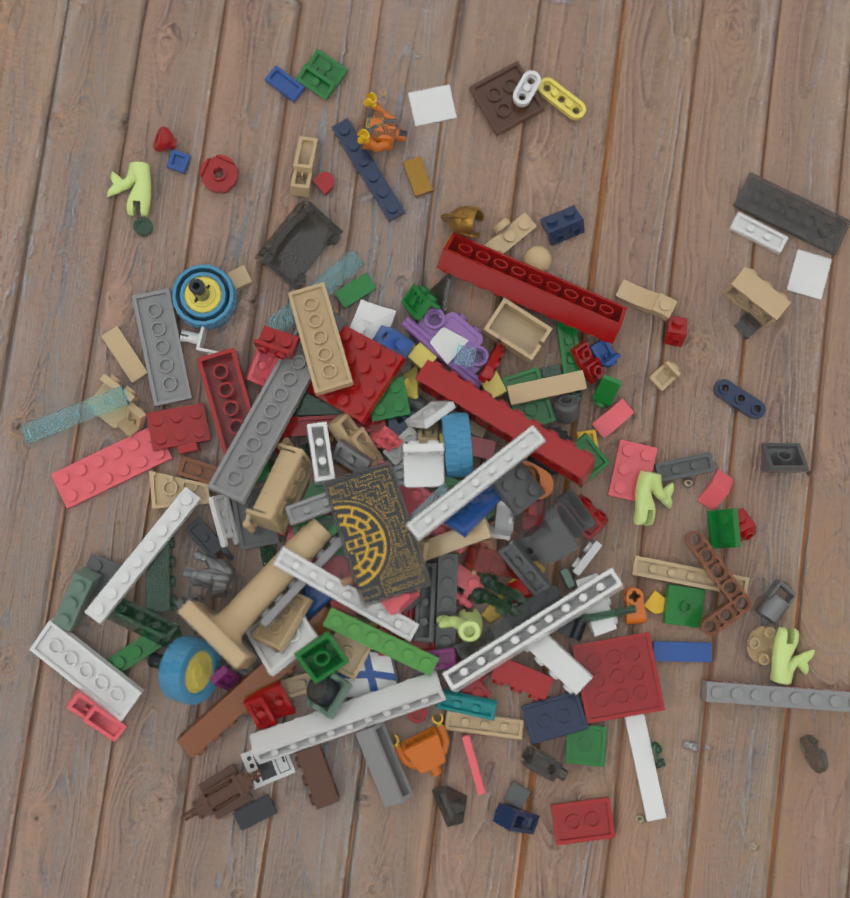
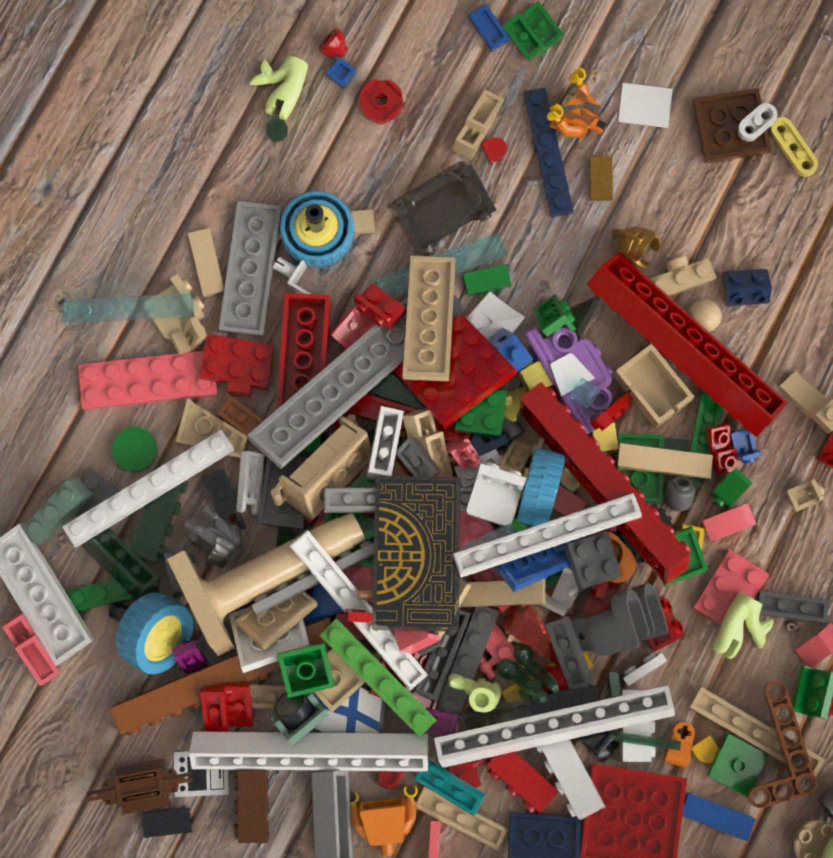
camera: 25 degrees right, 5 degrees down
(121, 526) = (134, 449): none -> green tile
(348, 600) = (358, 615): none -> red tile
(430, 414) = (522, 443): white tile -> none

